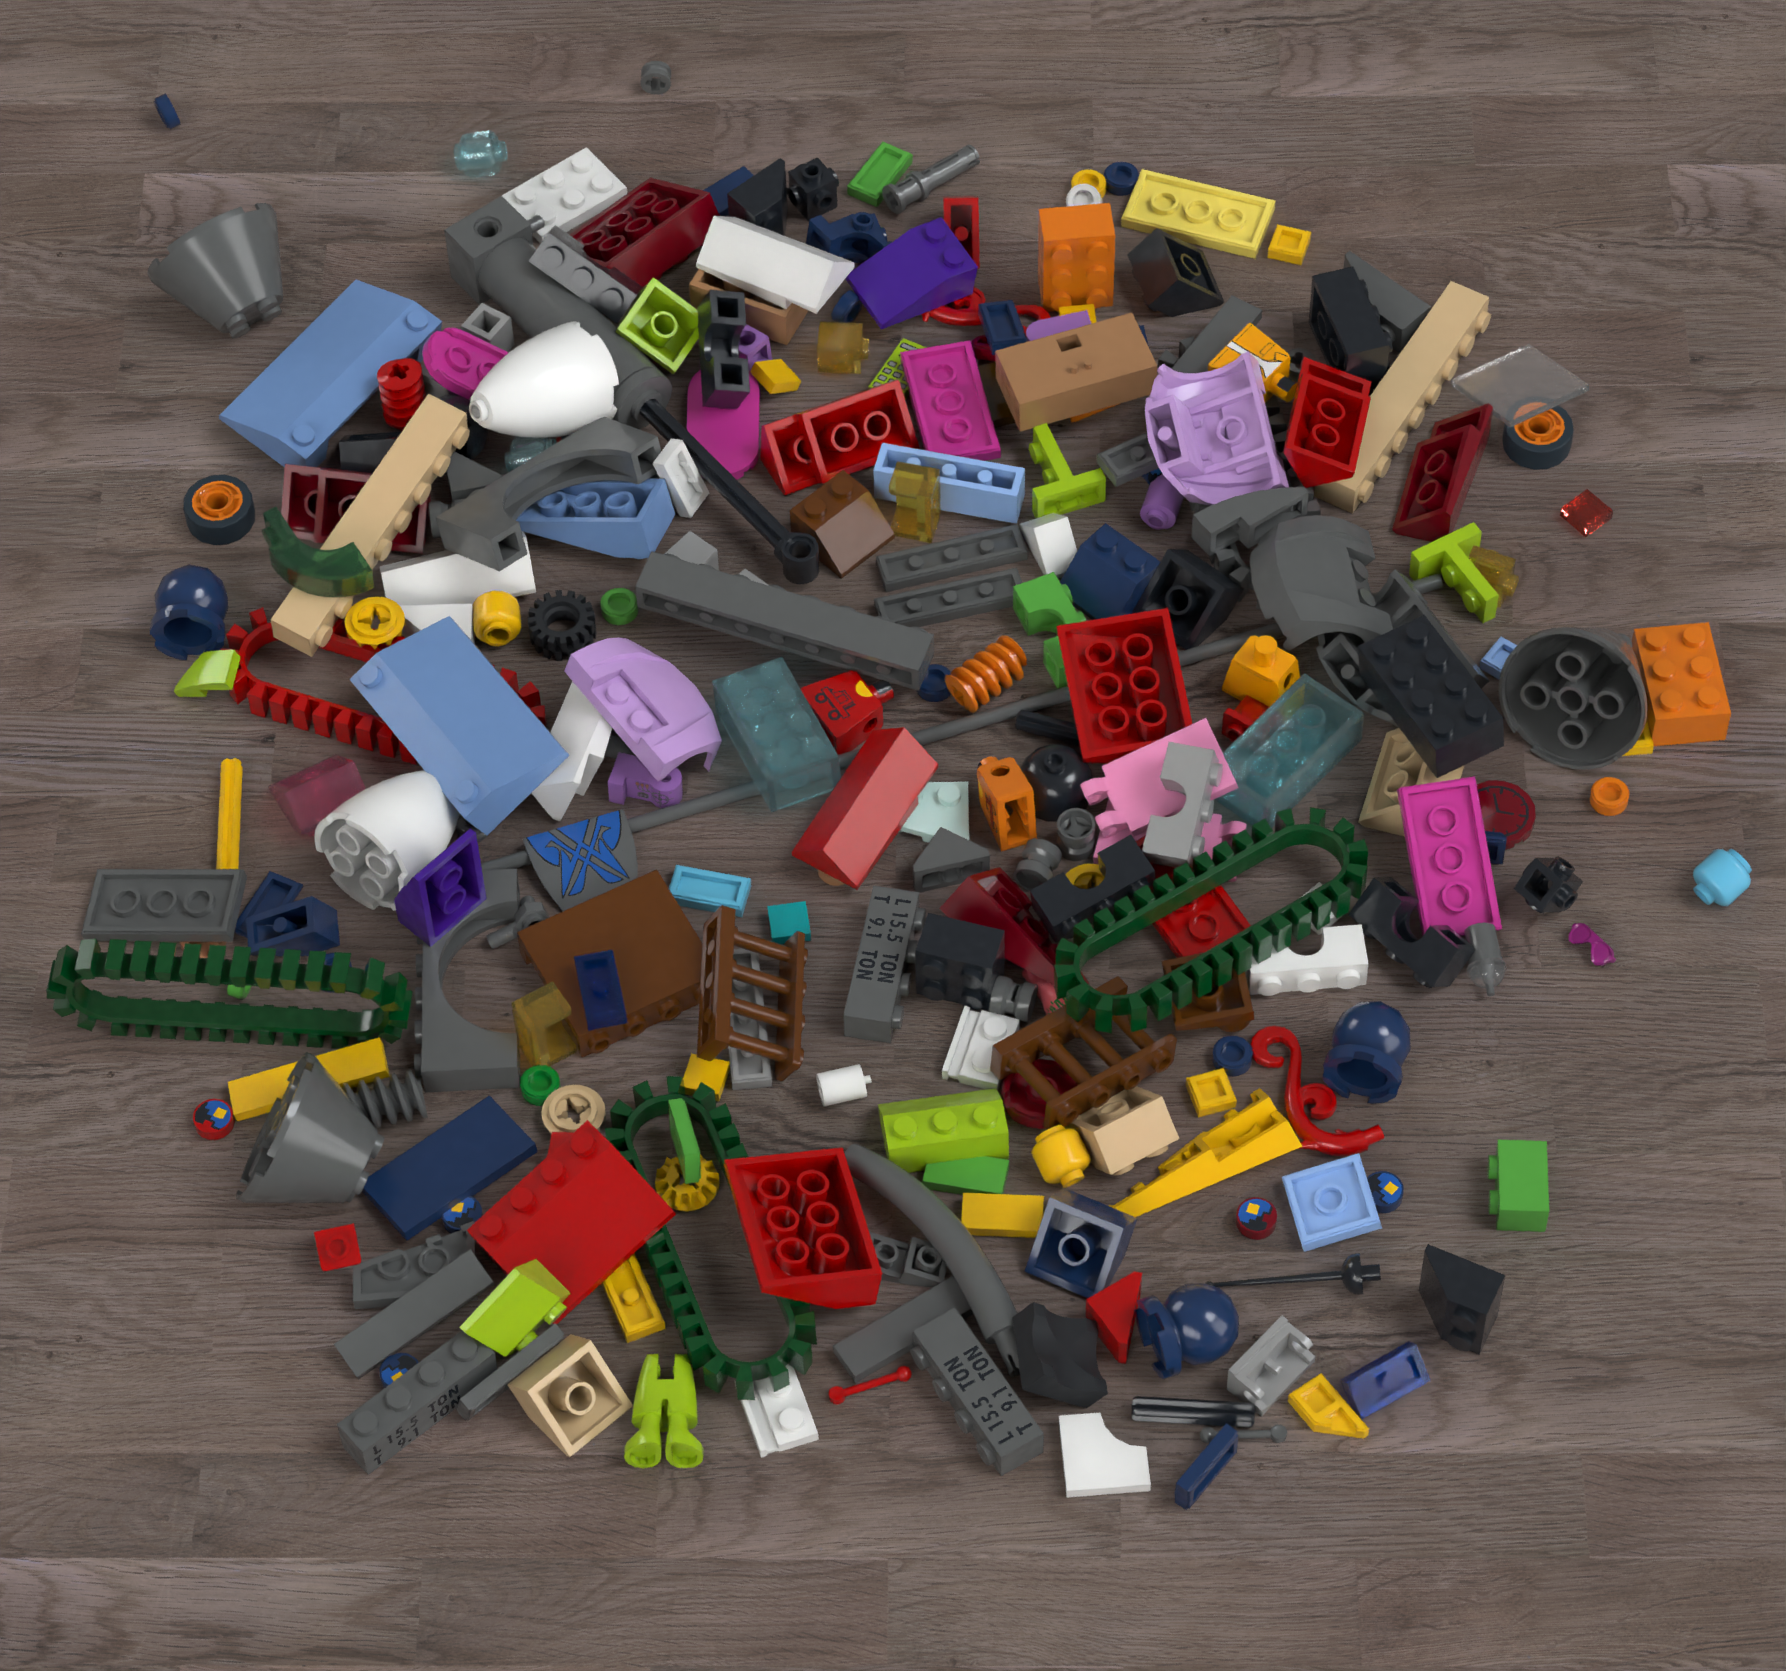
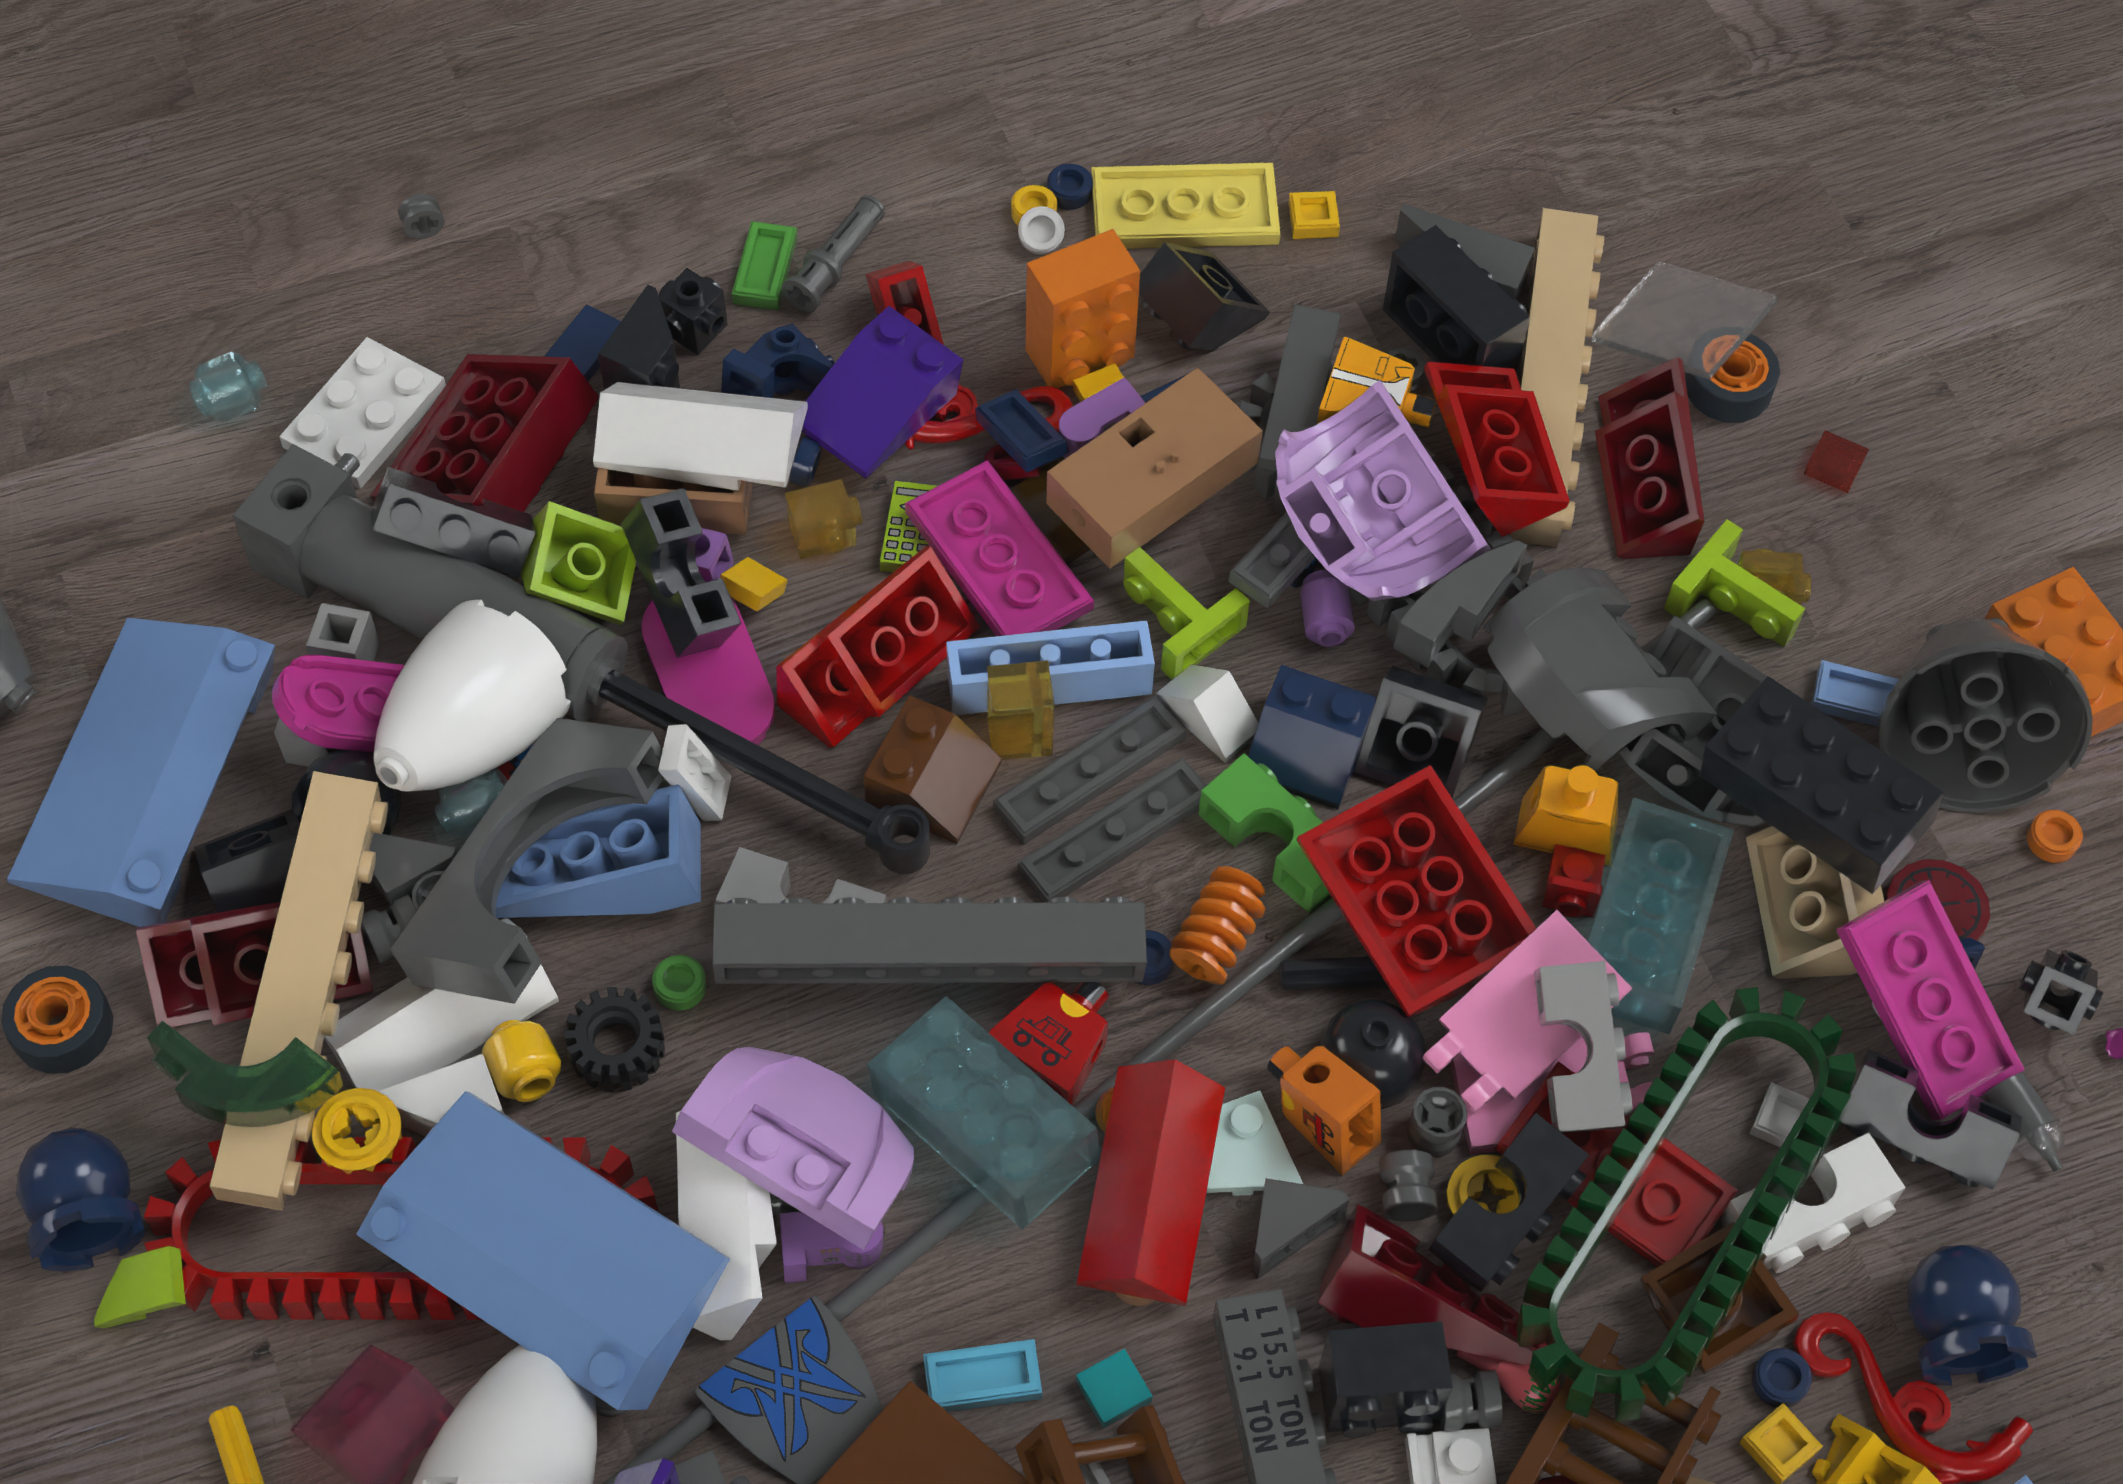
camera: 25 degrees left, 5 degrees up
(400, 390) = (259, 767): red piece -> none

